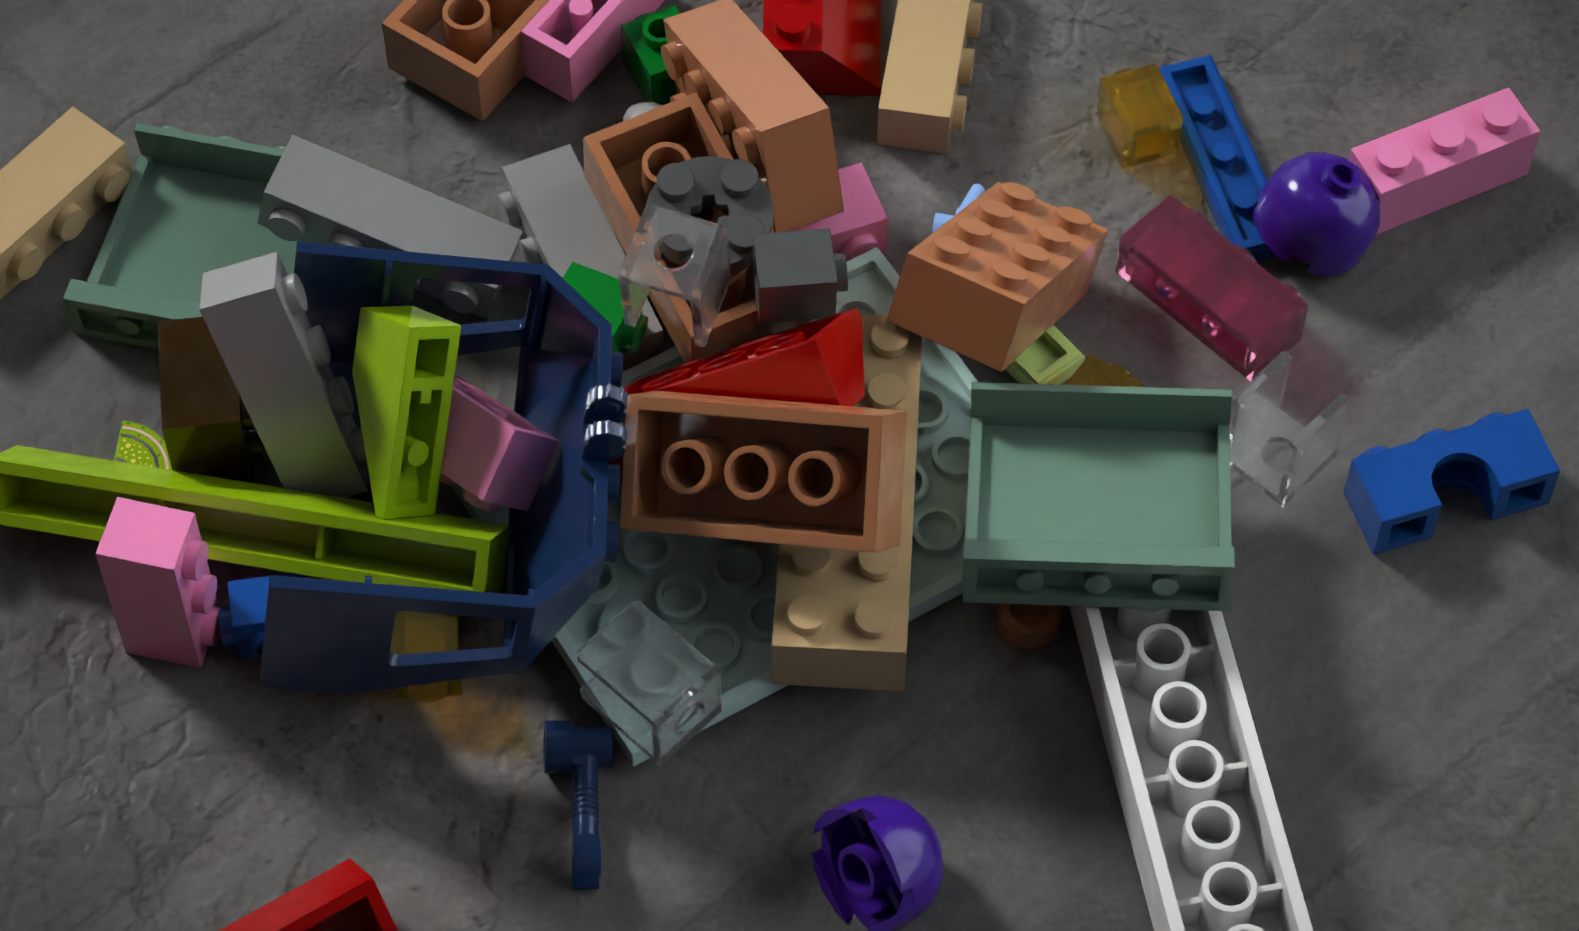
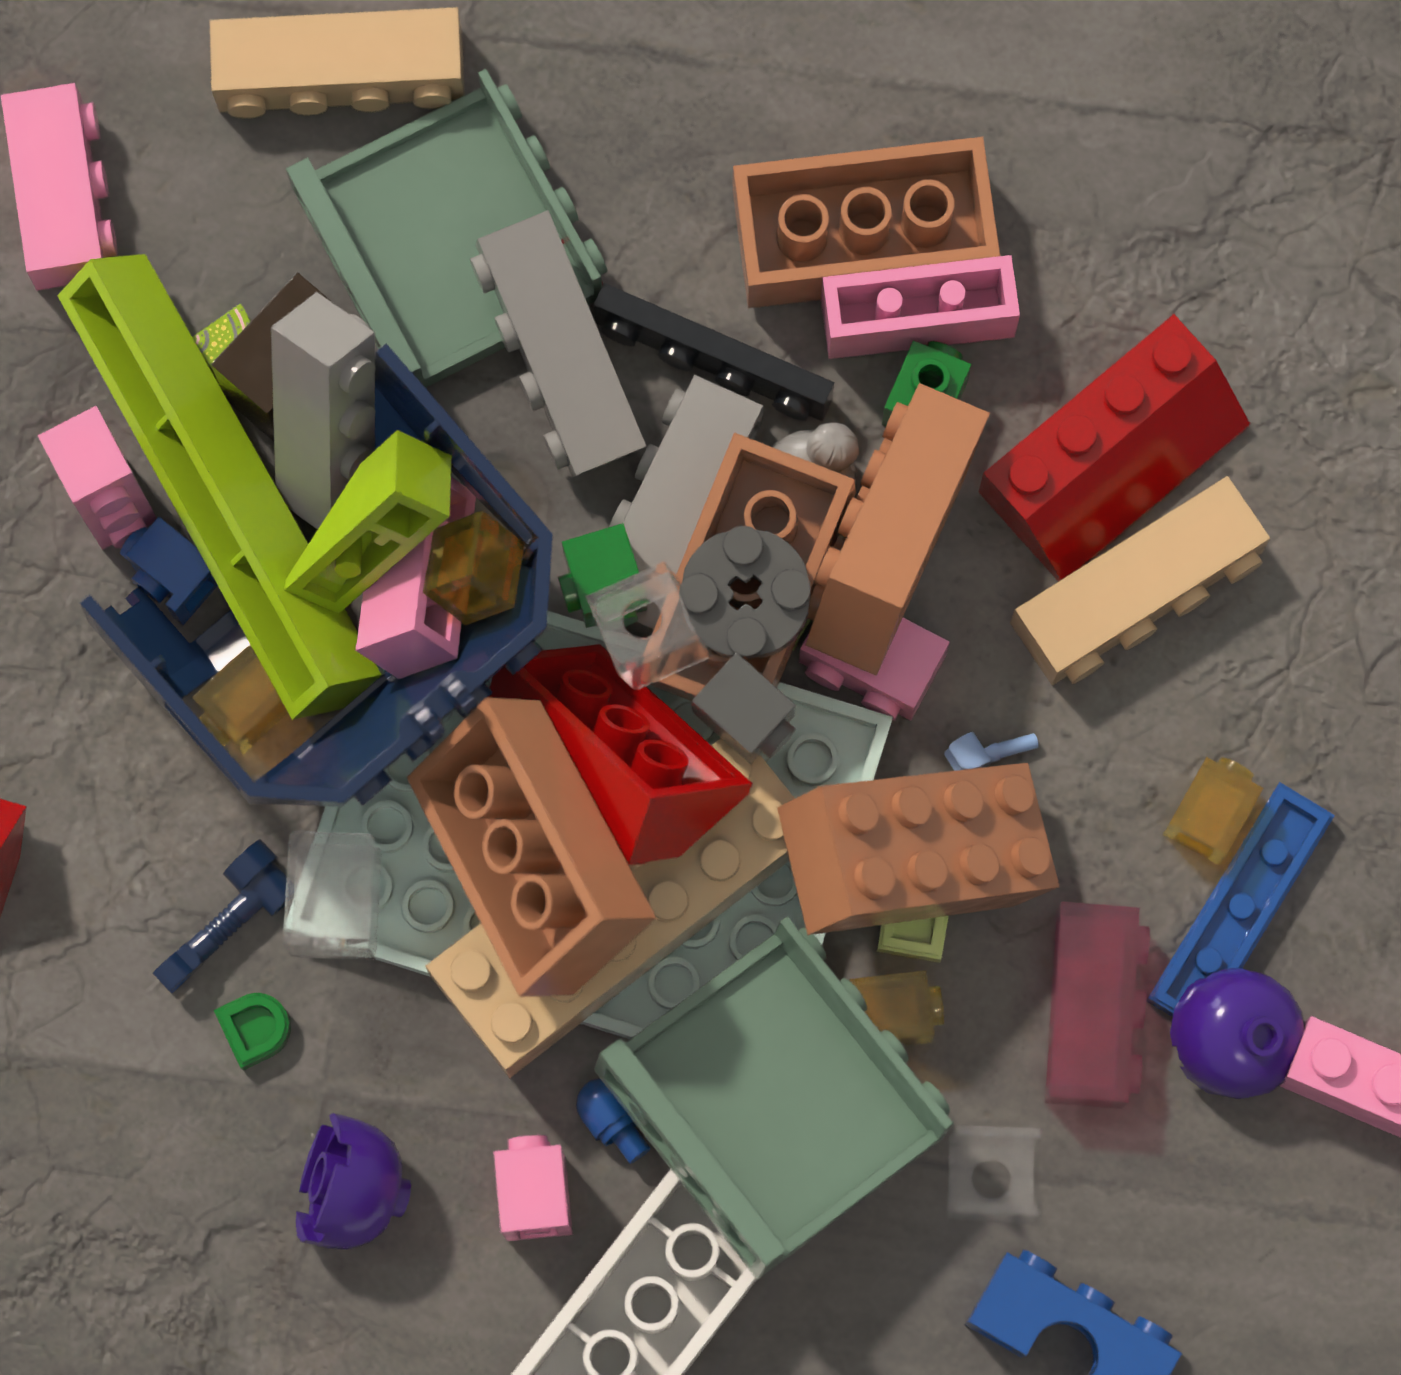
camera: 50 degrees right, 20 degrees up
(476, 162) = (734, 363): none -> black plate
(505, 374) = (473, 567): none -> clear yellow brick
(685, 849) = (254, 1027): none -> green tile
(998, 654) = (609, 1120): none -> blue cylinder
(1012, 729) = (532, 1189): none -> bright pink brick

